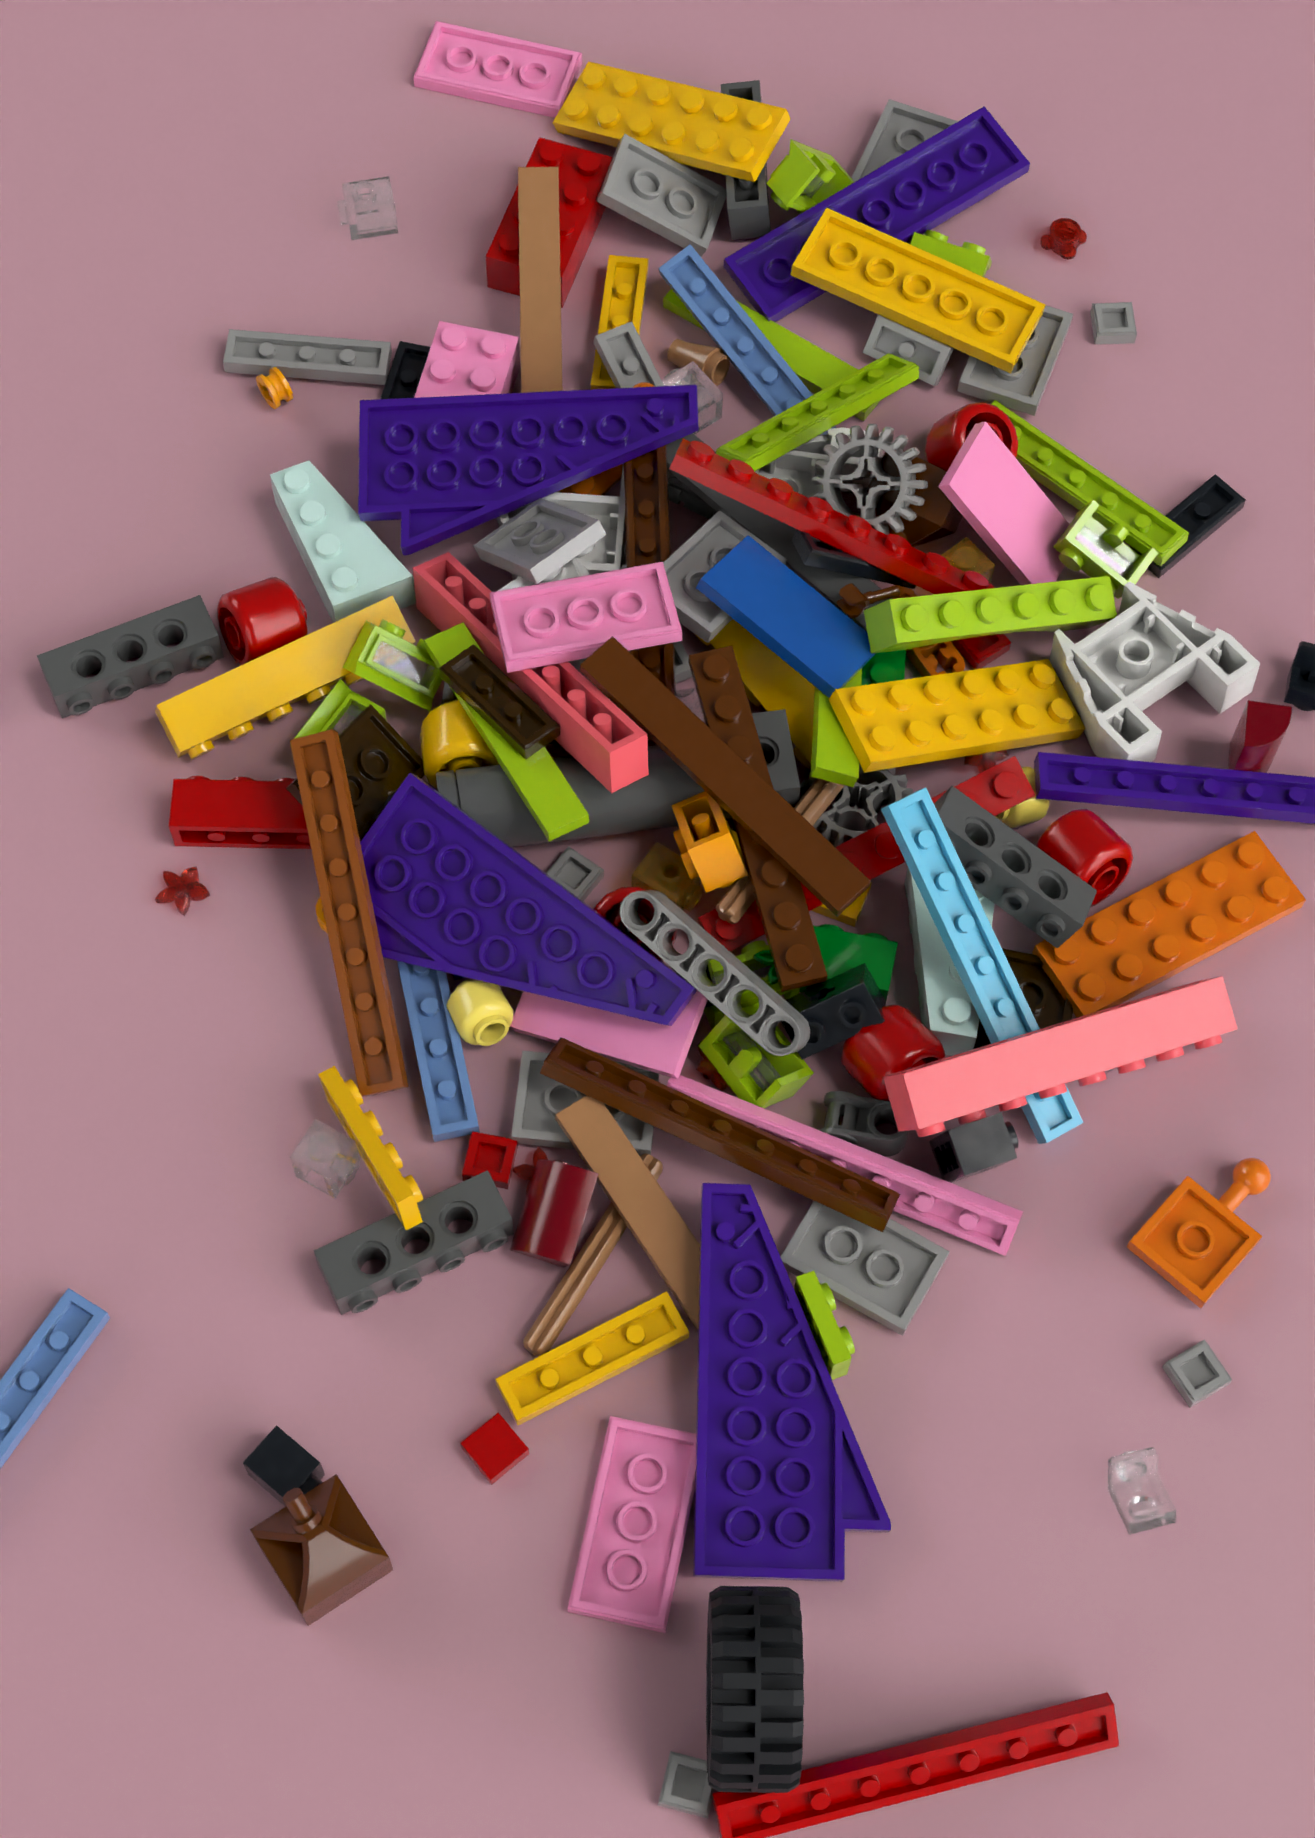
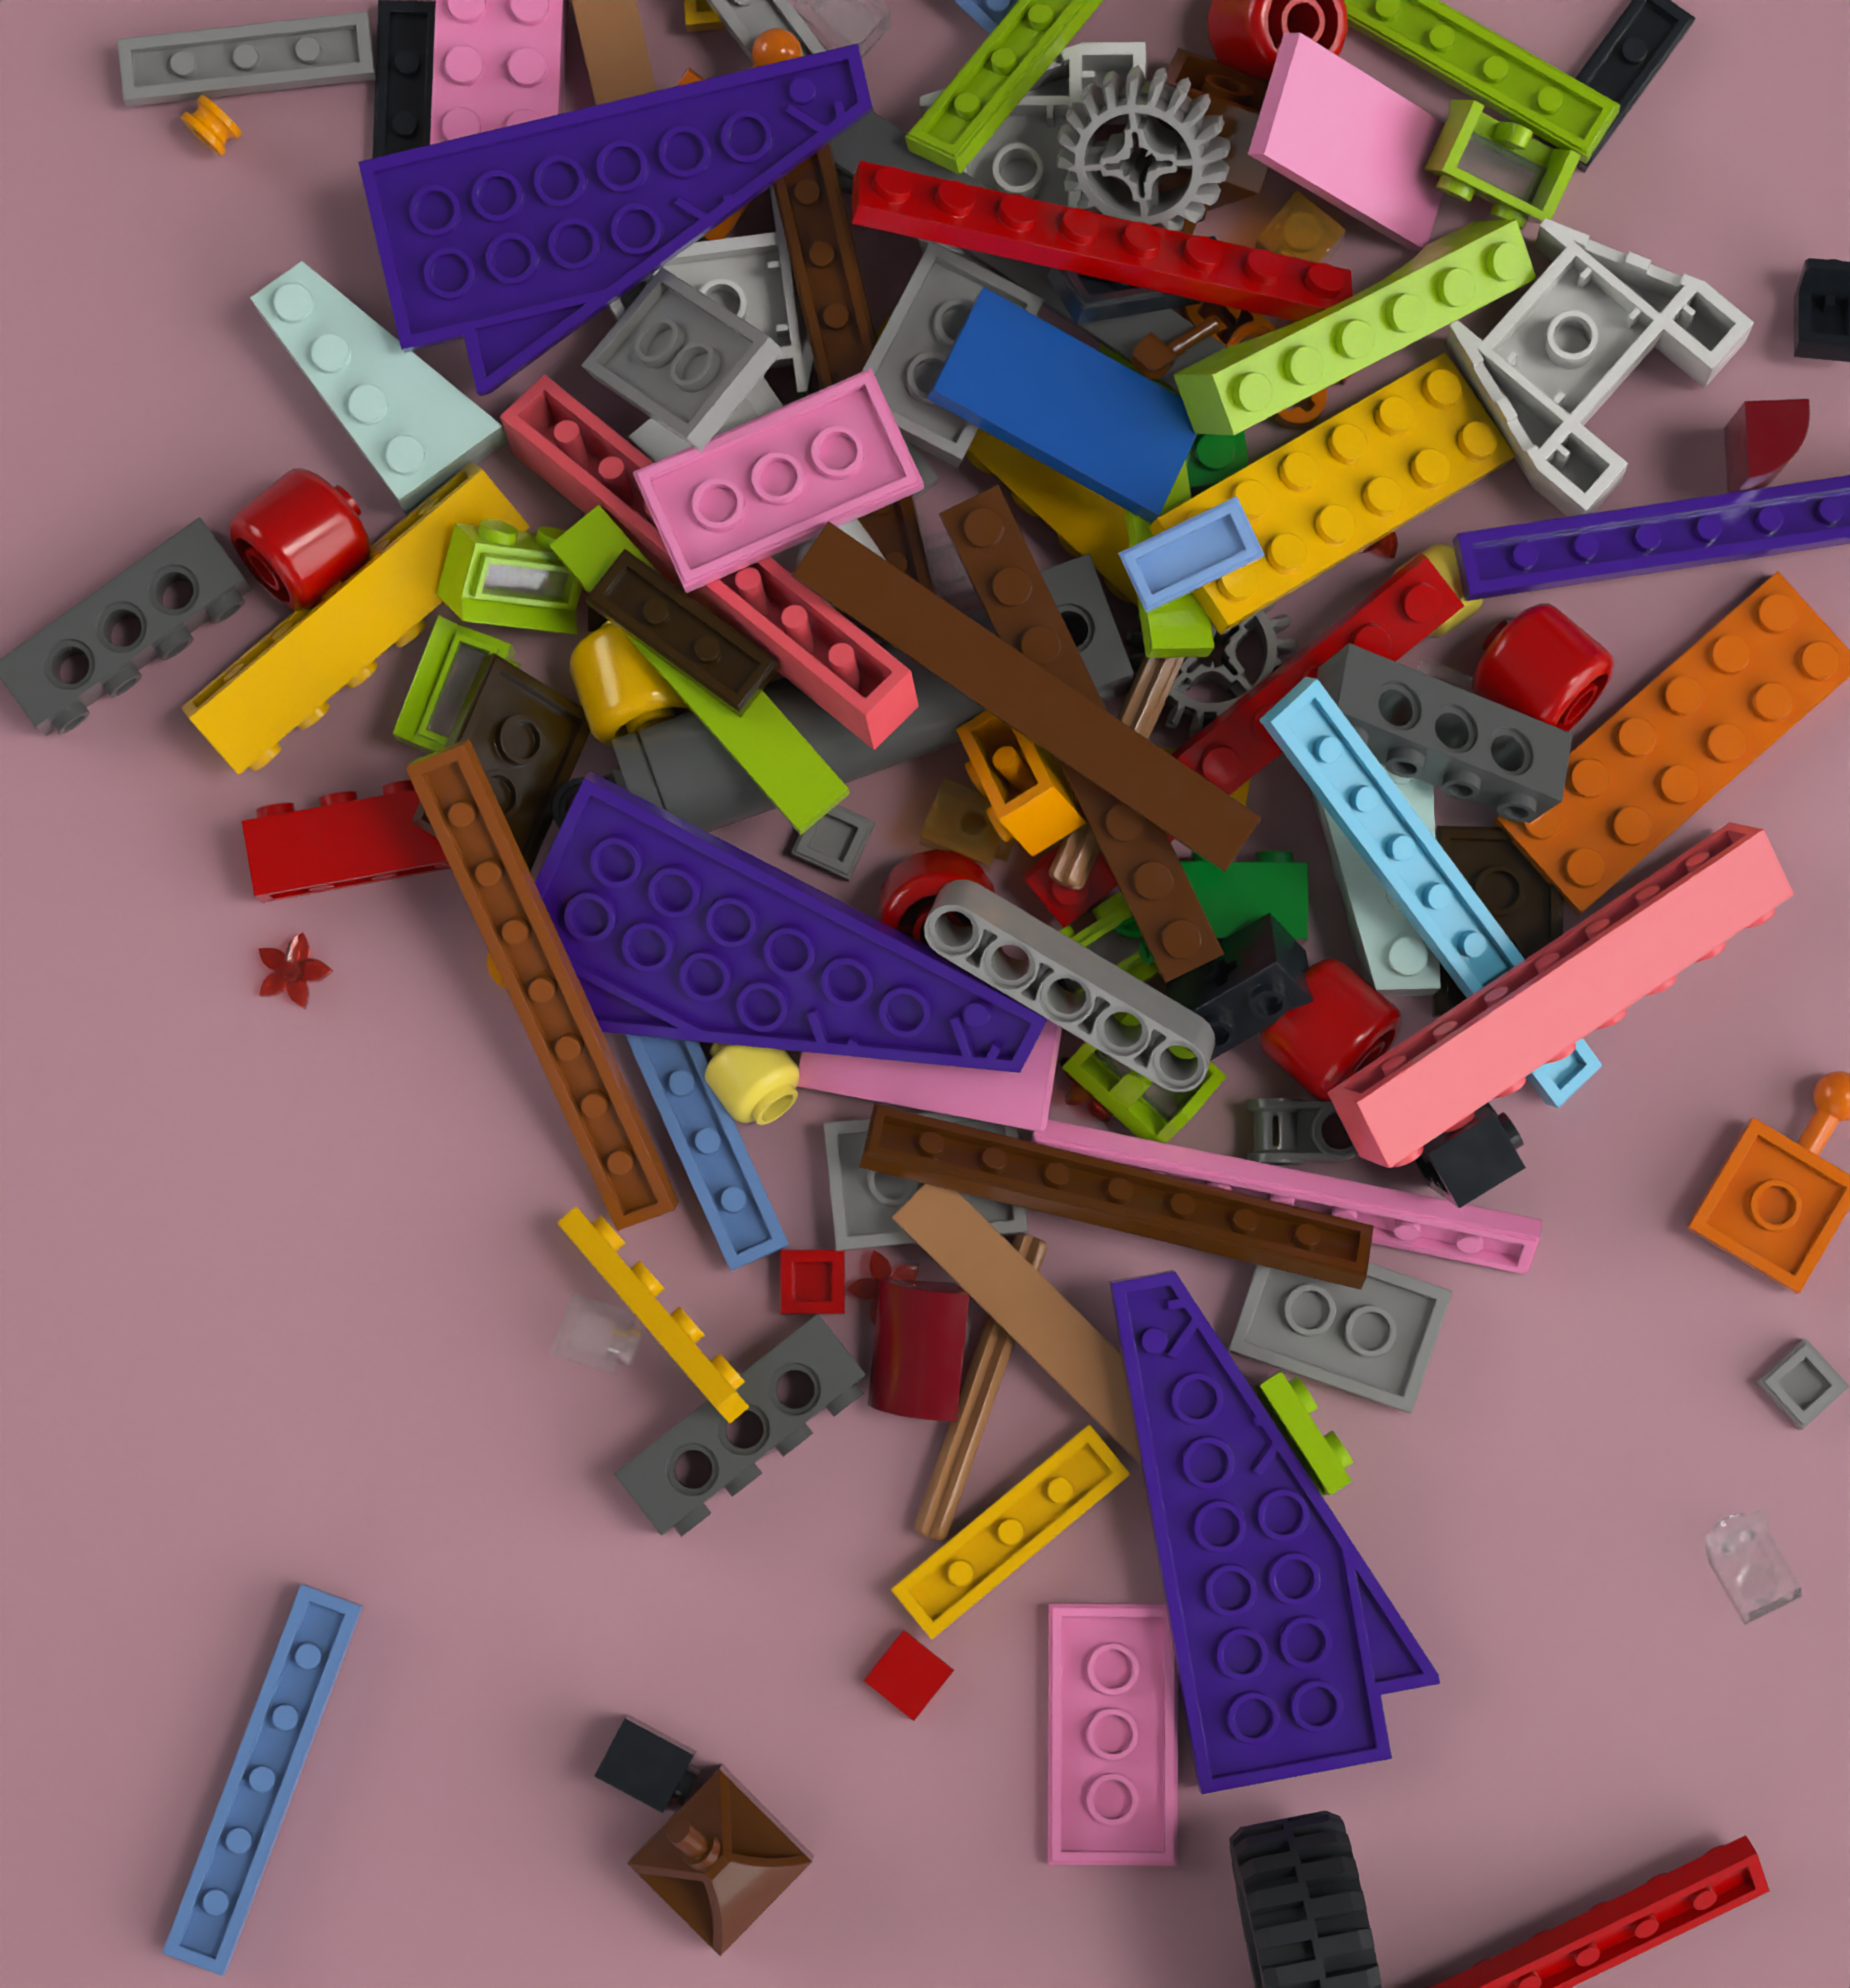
camera: 10 degrees left, 20 degrees up
(854, 711) = (1191, 554): none -> light blue tile

